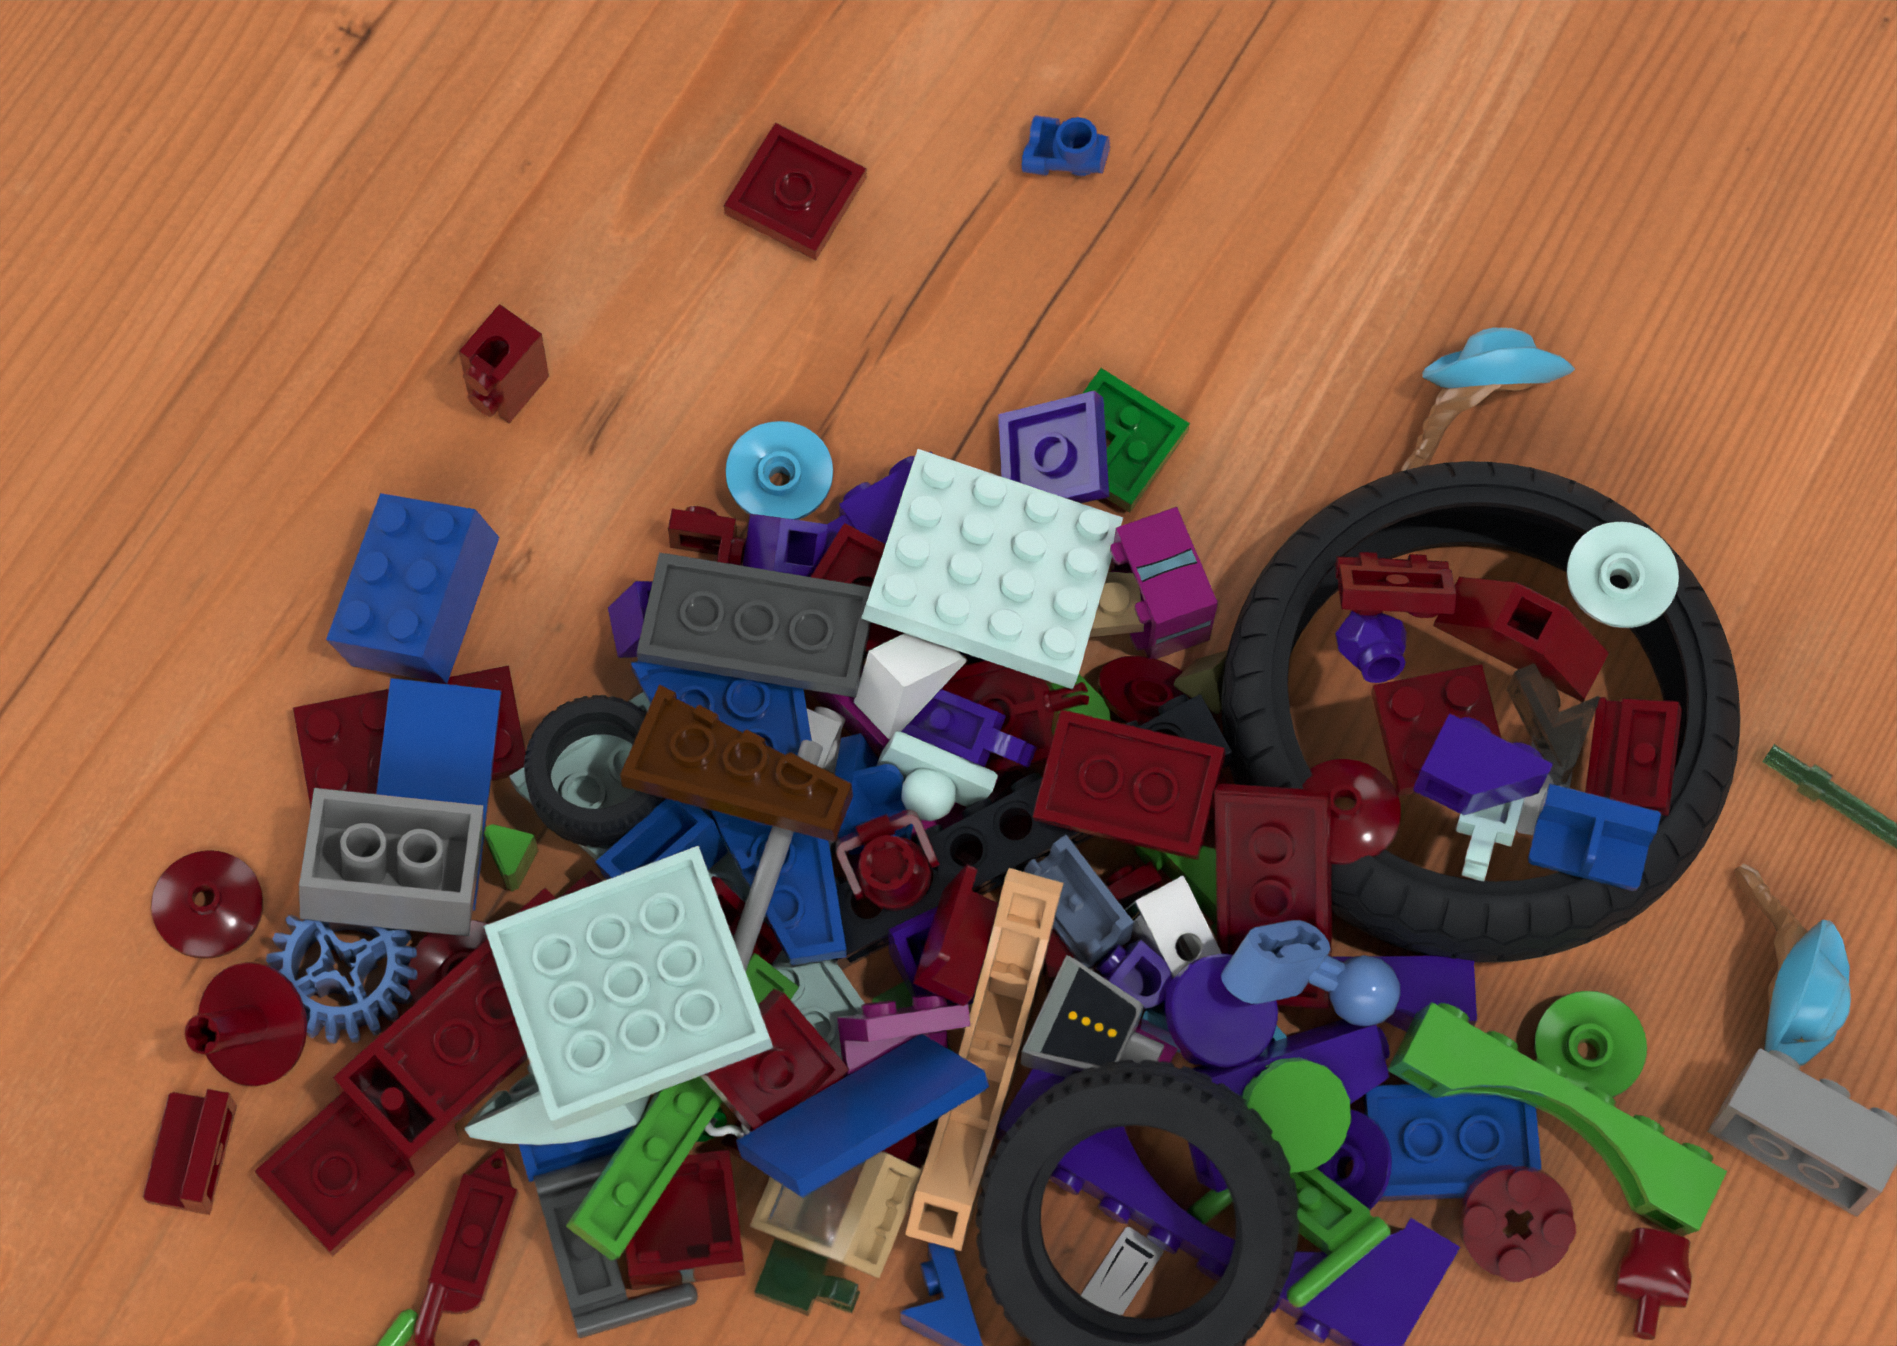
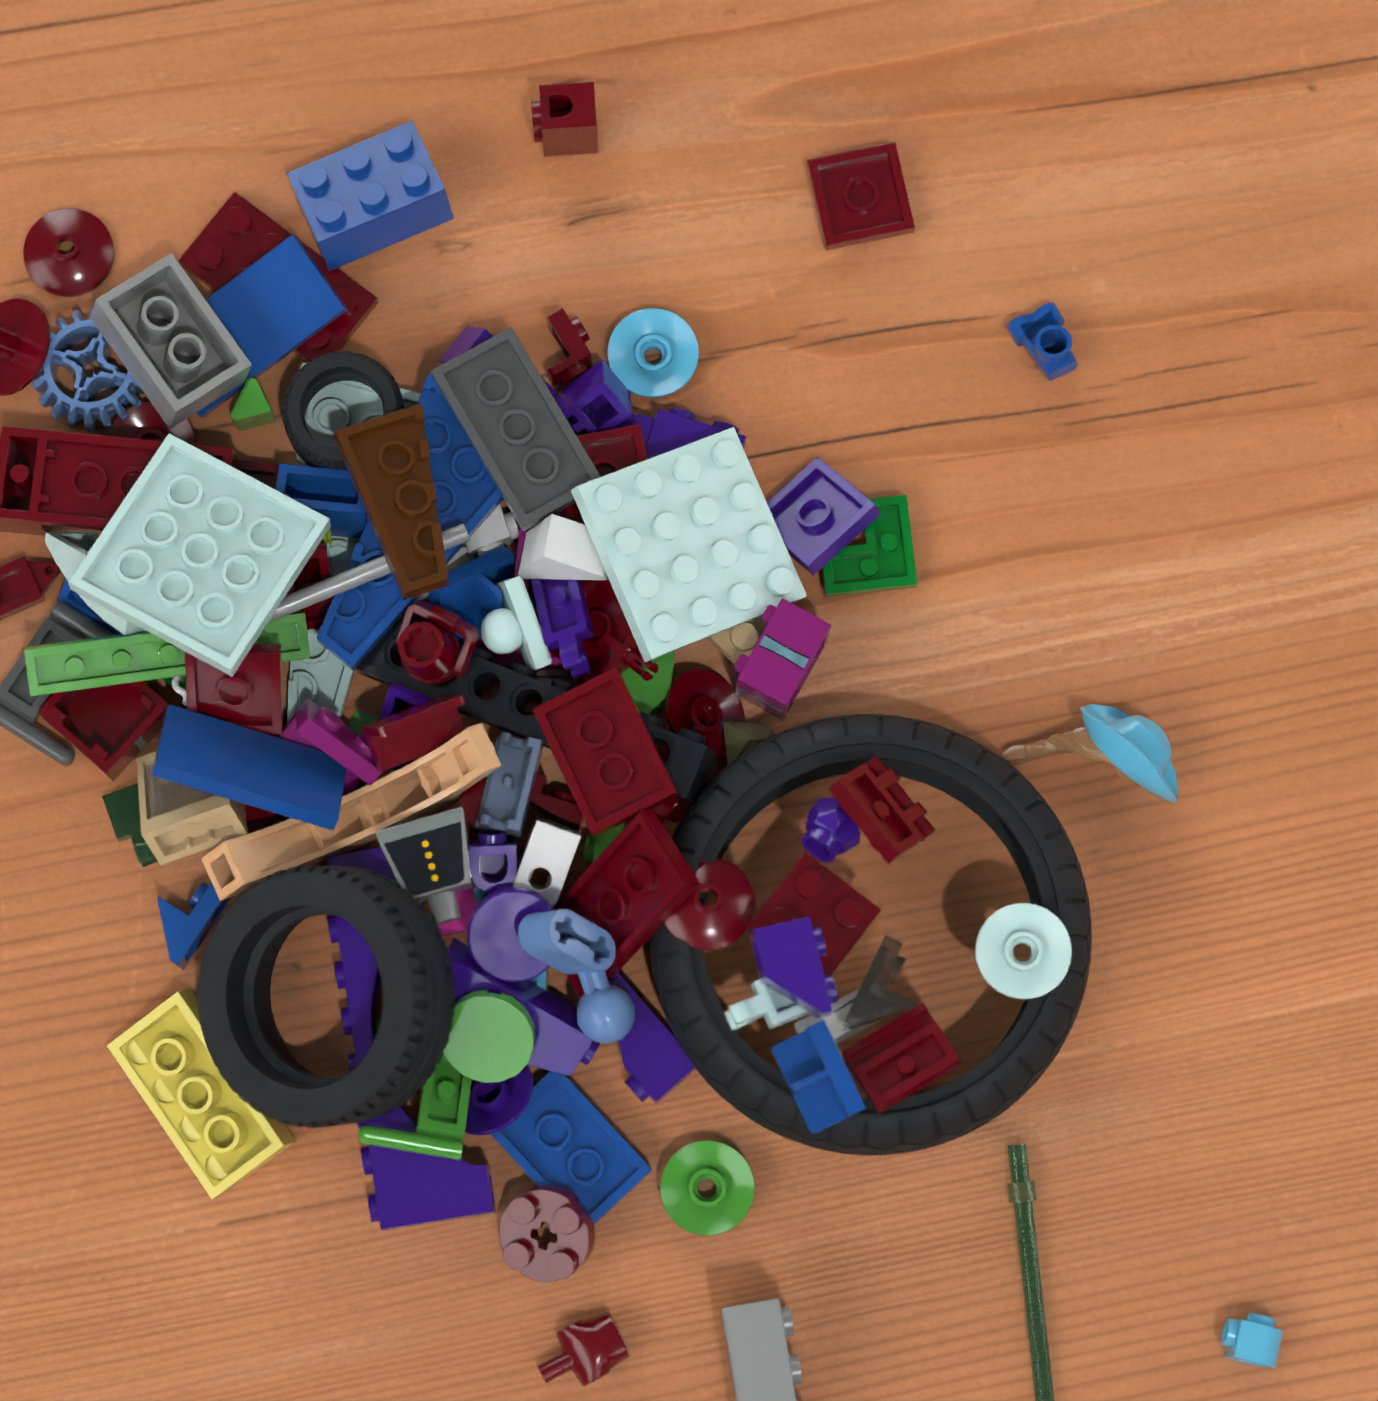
camera: 50 degrees right, 10 degrees up
(1122, 1272) = (308, 1012): white sticker -> none
(1525, 630) = (924, 922): dark red slope -> none
(1657, 1175) = (653, 1301): bright green arch -> none
(1811, 986) = (871, 1295): medium azure hat -> none

